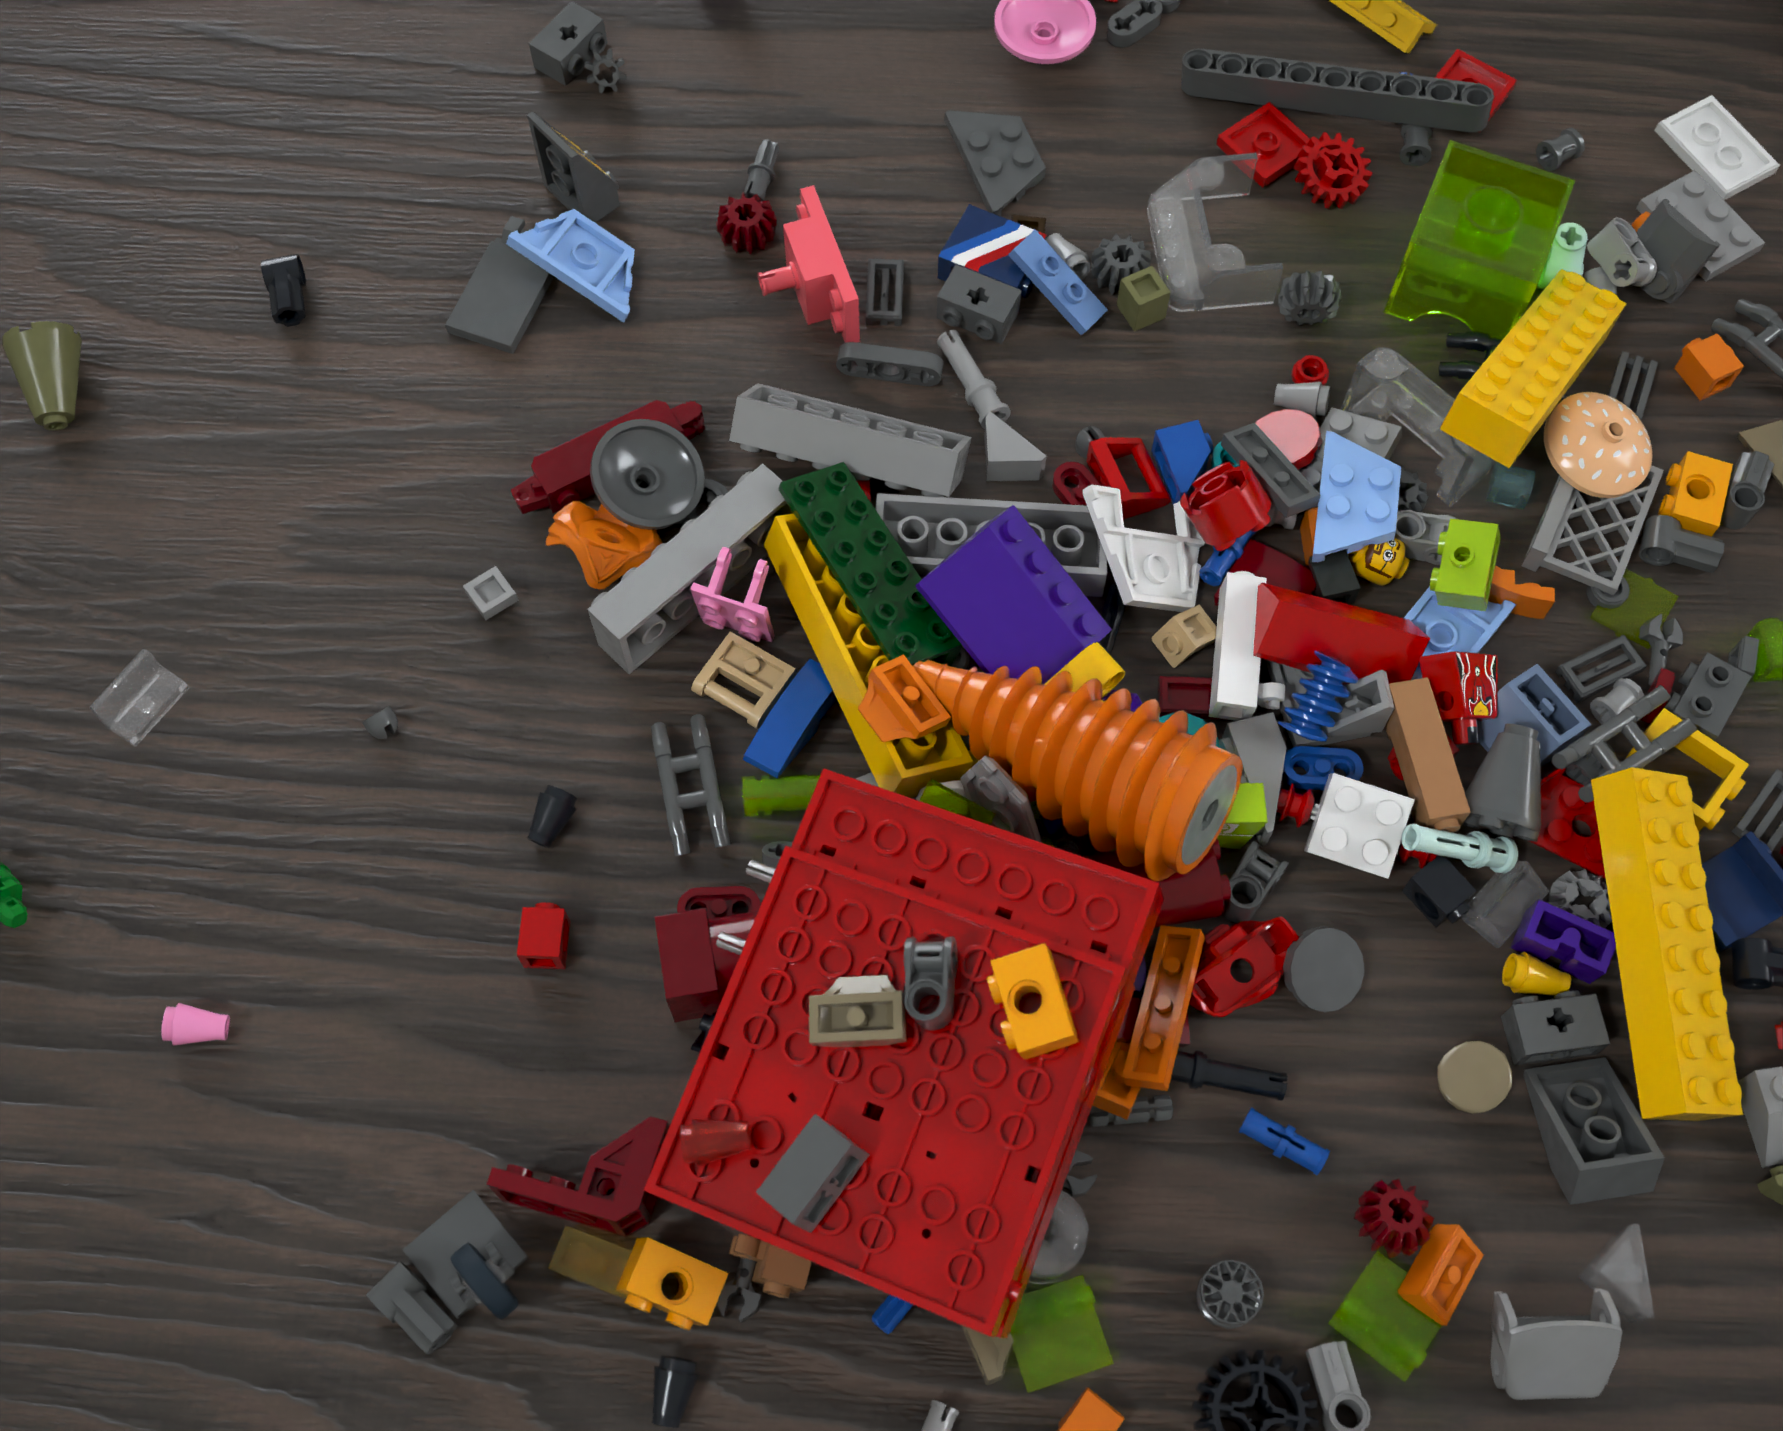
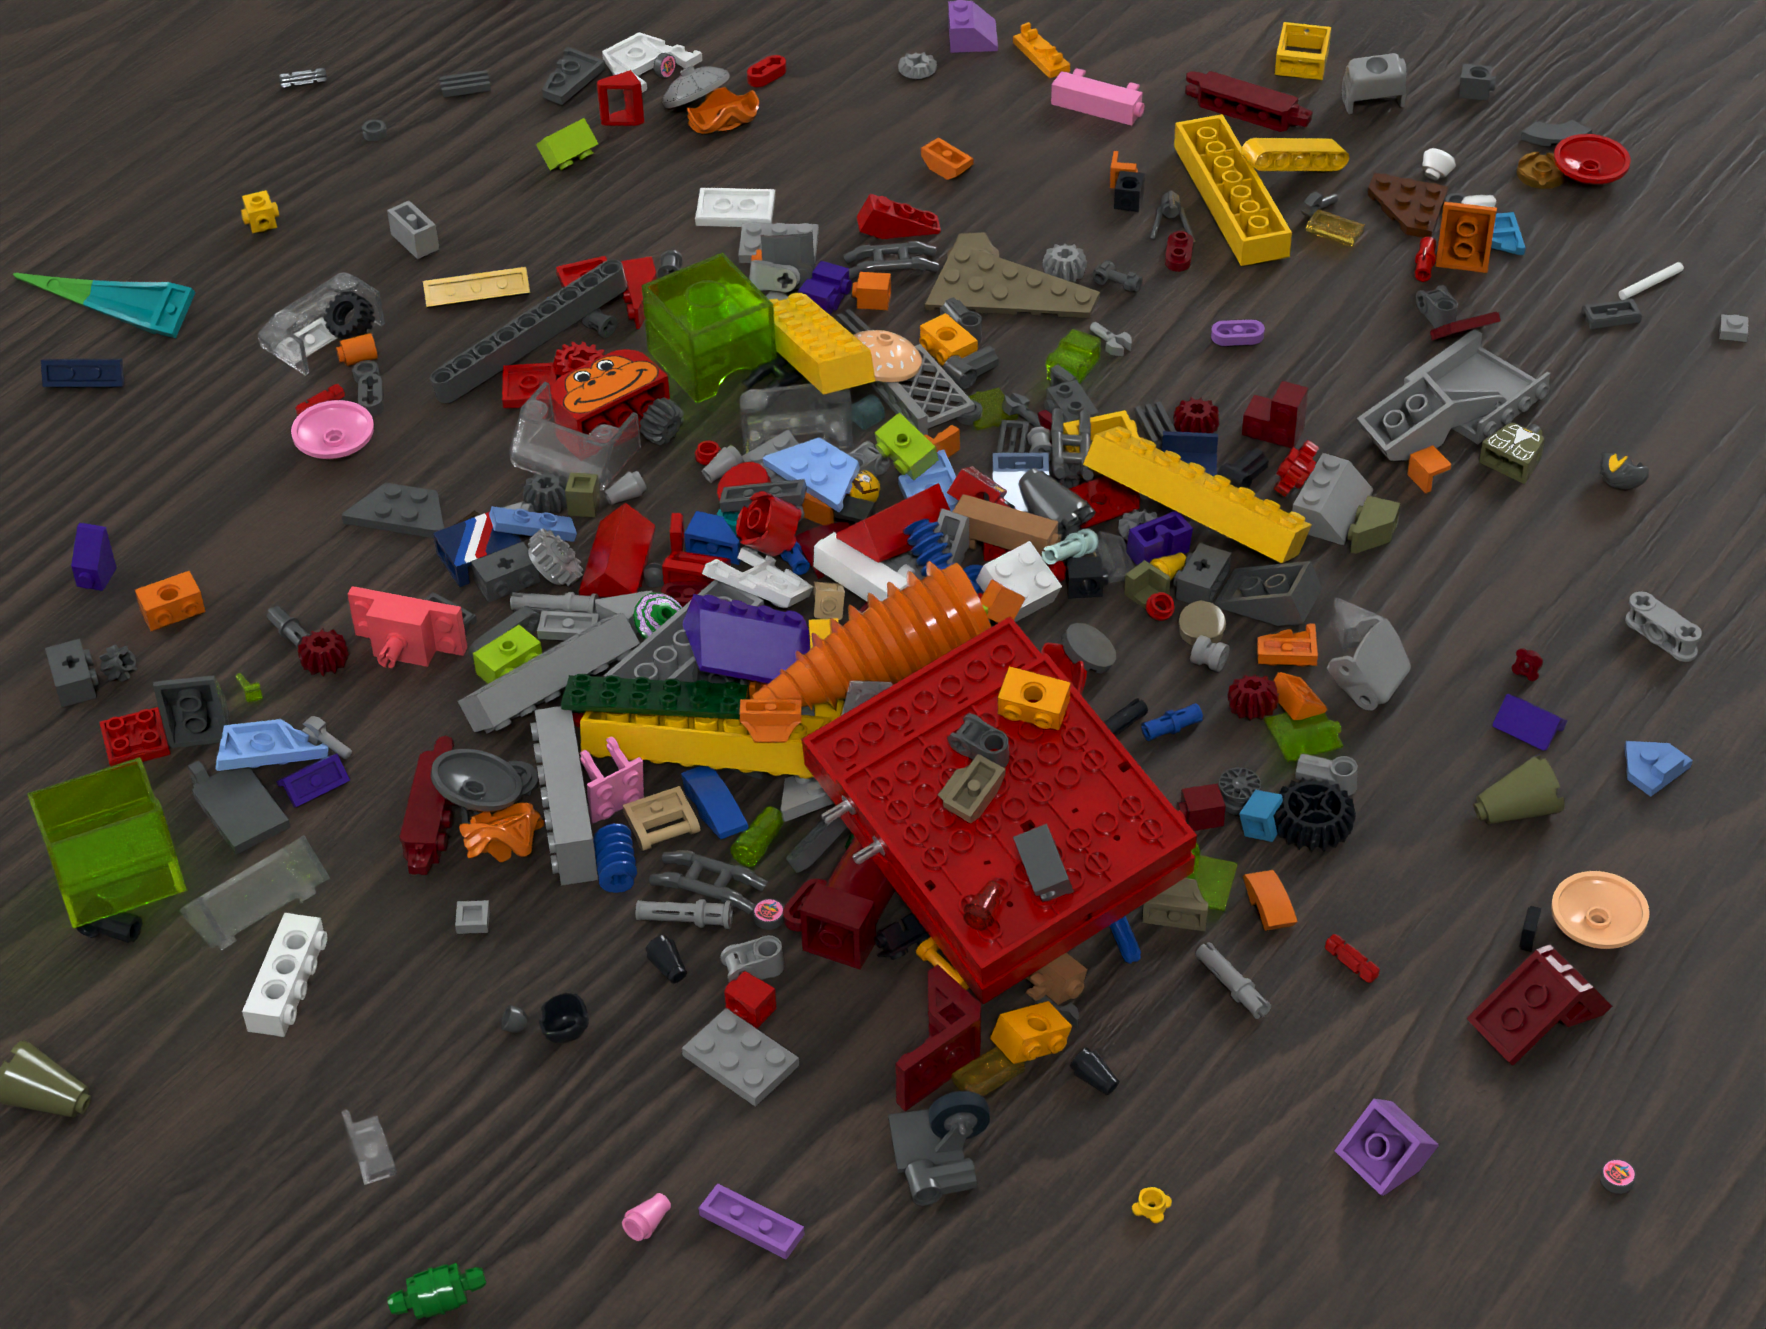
camera: 55 degrees left, 20 degrees down
(245, 1138) = (751, 1221): none -> medium lavender plate
(289, 476) = (284, 975): none -> white brick
(332, 217) = (107, 842): none -> clear neon green piece
(376, 377) = (255, 893): none -> clear windscreen
(402, 771) = (564, 1018): none -> black hair
(468, 978) = (740, 1057): none -> light grey plate
(516, 154) = (135, 737): none -> red tile
(576, 330) = (314, 780): none -> dark purple panel
(596, 900) = (758, 957): none -> light grey piece
(634, 806) = (647, 911): none -> light grey pin
(638, 297) = (317, 733): none -> light grey bar
(650, 671) = (615, 858): none -> blue piece
(658, 201) = (251, 691): none -> clear neon green hand
(684, 874) = (768, 914): none -> tile
(718, 54) = (170, 600): none -> orange brick
(861, 383) = (506, 653): none -> lime brick
(948, 407) = (563, 625): none -> light grey plate
(1021, 470) = (649, 612): none -> dish
(1022, 334) = (554, 558): none -> light grey gear
(1086, 392) = (618, 554): none -> red slope
(1161, 418) = (676, 532): none -> red tile
(1167, 1263) = (1202, 807): none -> dark red brick
(1192, 332) = (626, 488): none -> light grey cone
(1203, 1348) = (1258, 816): none -> dark azure panel
(1293, 220) = (608, 391): none -> brick
(1294, 828) = (1001, 601): none -> orange panel
(1429, 1118) = (1209, 653): none -> light grey wheel
(1475, 1015) = (1162, 600): none -> red plate
(1484, 972) = (1145, 581): none -> olive panel
(1511, 132) = (637, 273): none -> red slope
(1519, 1210) = (1288, 648): none -> orange wing
(1664, 318) = (827, 285): none -> dark purple brick

